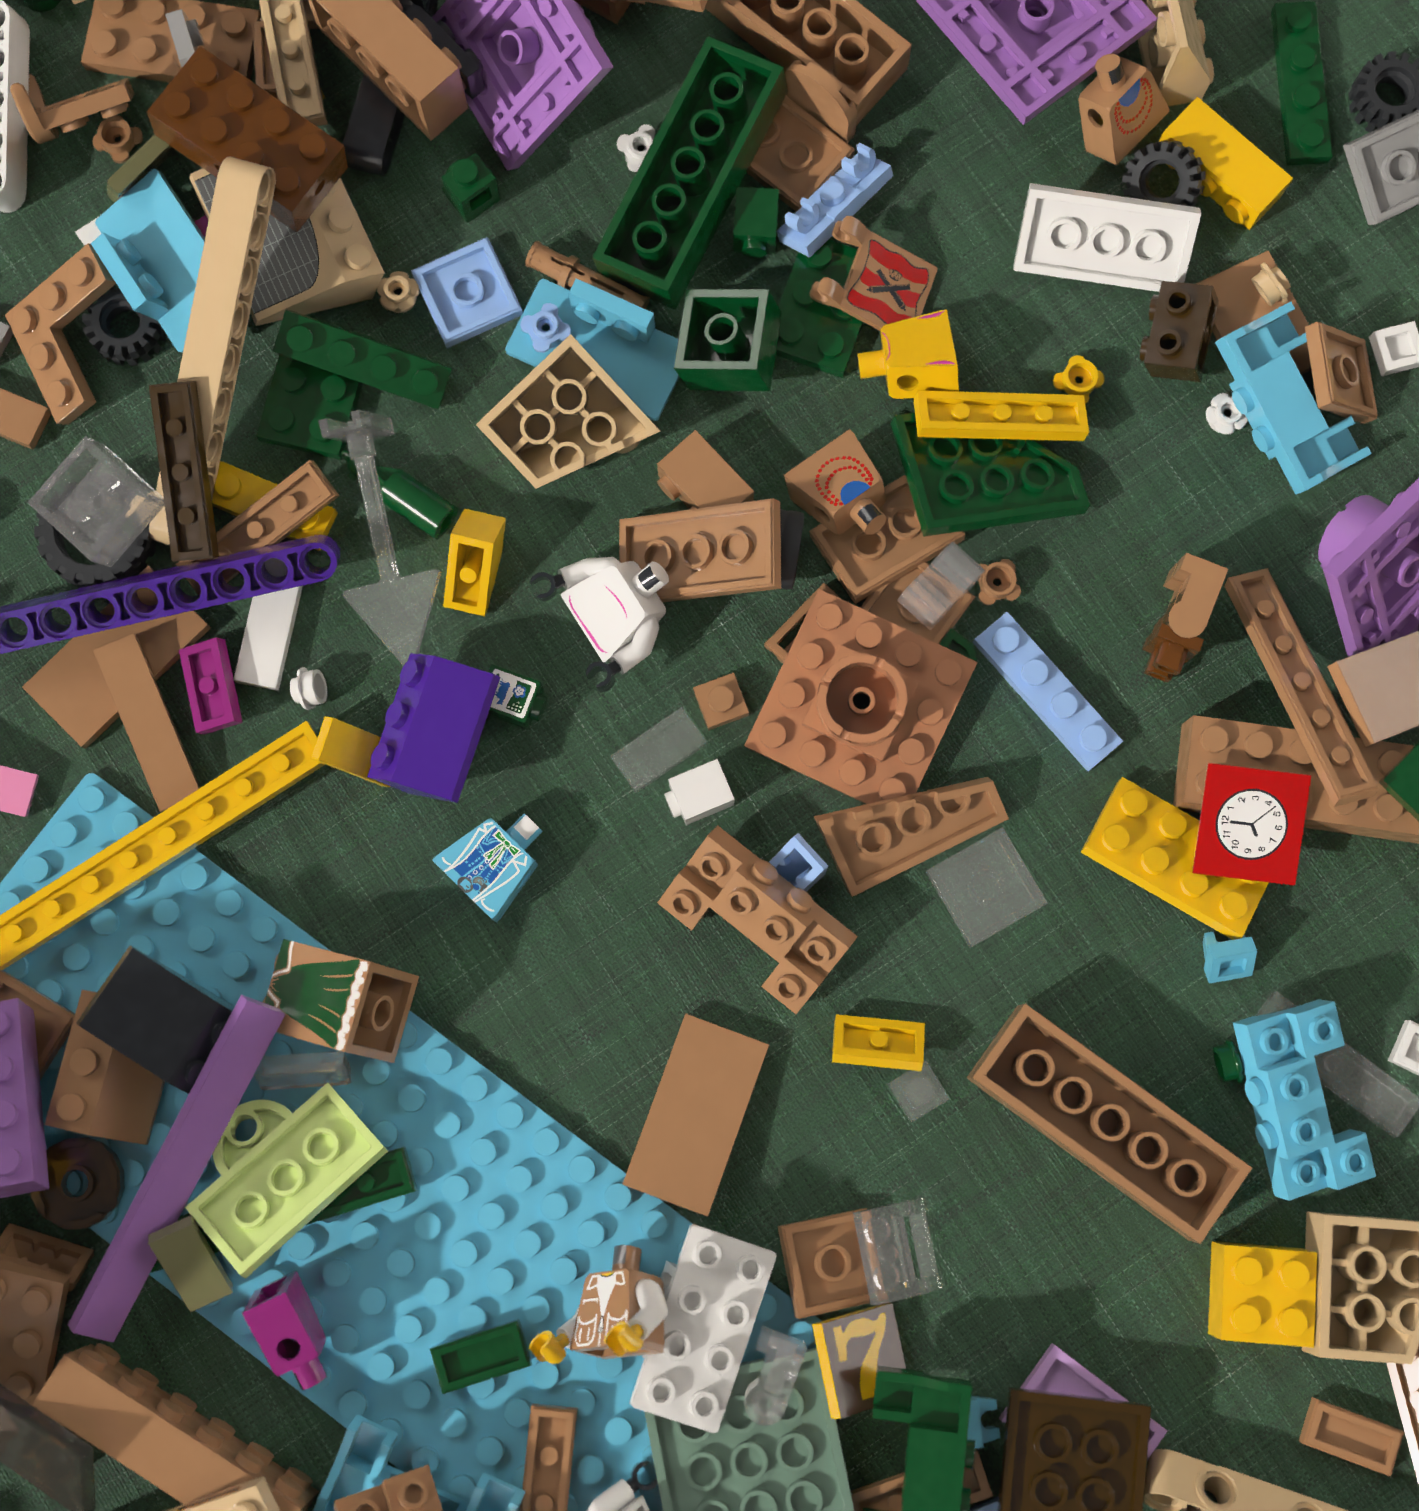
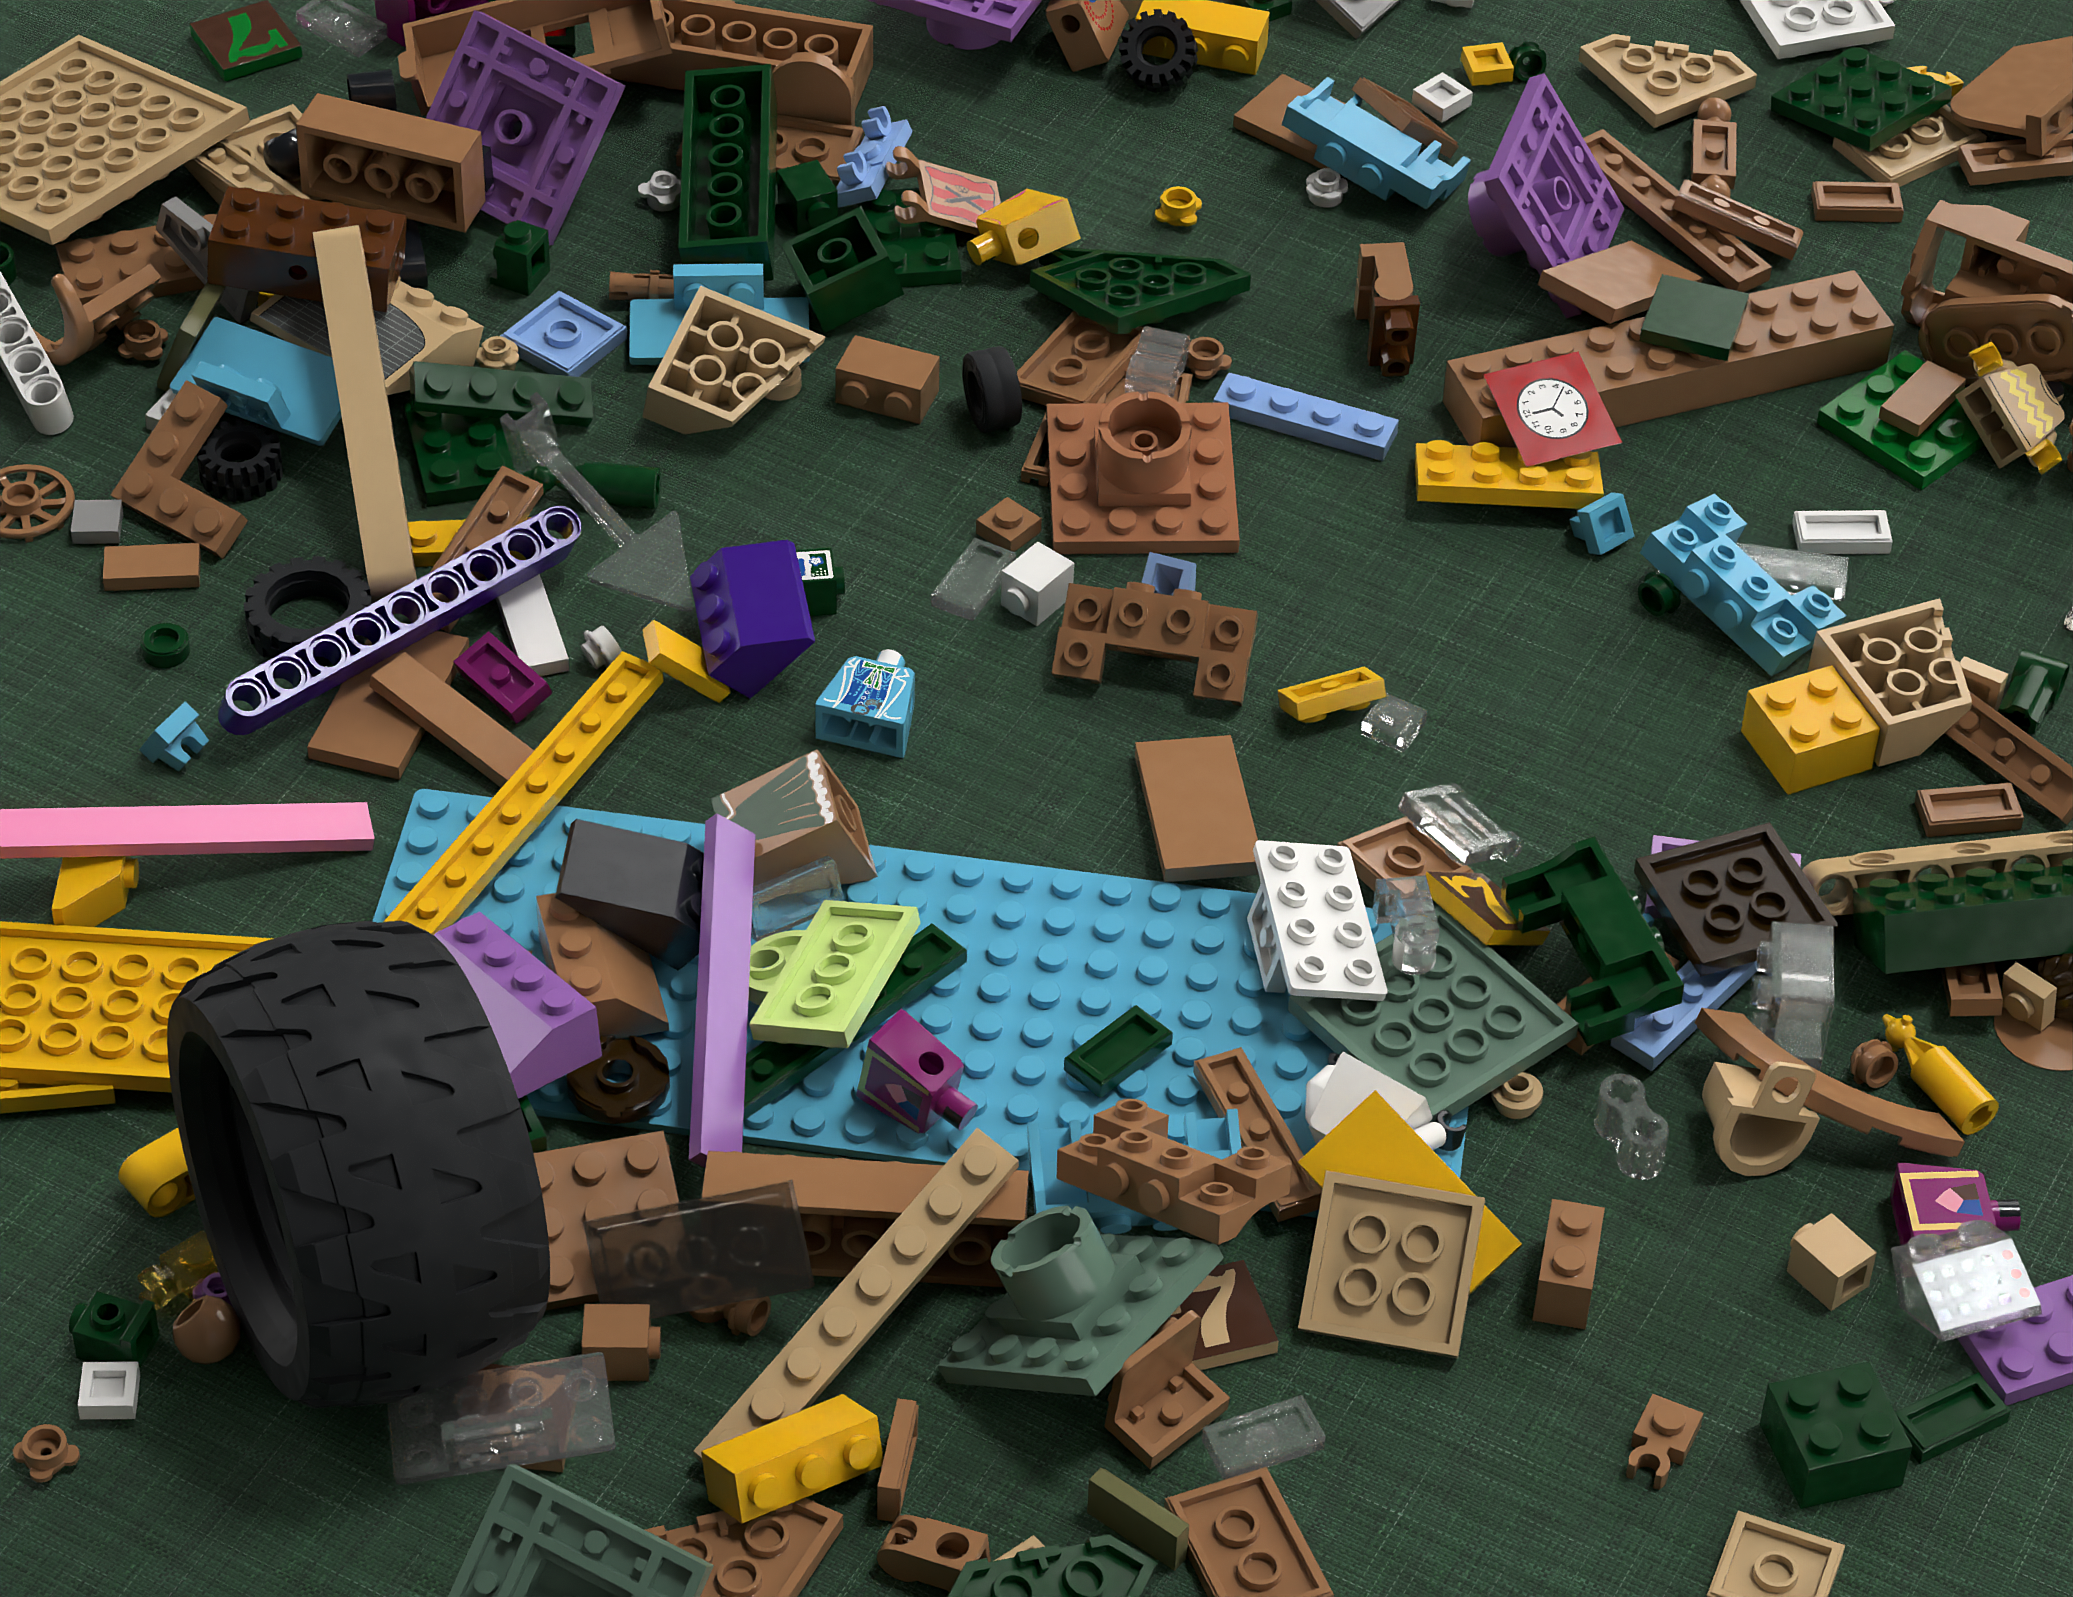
camera: 30 degrees left, 35 degrees down
(97, 502) = (315, 552): clear brick -> none
(183, 471) = (384, 501): dark brown tile -> none
(190, 1263) = (782, 1073): olive tile -> none
(473, 561) = (704, 504): yellow slope -> none
(548, 339) = (660, 323): light blue plate -> none
(613, 607) = (860, 476): white torso -> none
(616, 1316) = (1229, 939): torso -> none
(708, 548) = (919, 410): medium nougat tile -> none
(839, 487) = (1022, 325): medium nougat torso -> none
(901, 832) = (1249, 538): medium nougat wing -> none
(986, 887) = (1350, 562): clear tile -> none
(1000, 415) = (1127, 238): yellow plate -> none
(1105, 238) = (1135, 102): white plate -> none
(1109, 1123) = (1581, 661): medium nougat brick -> none
(1180, 331) = (1245, 138): dark brown brick -> none
(1271, 284) = (1299, 80): tan plate -> none
(1301, 688) = (1527, 312): medium nougat tile -> none

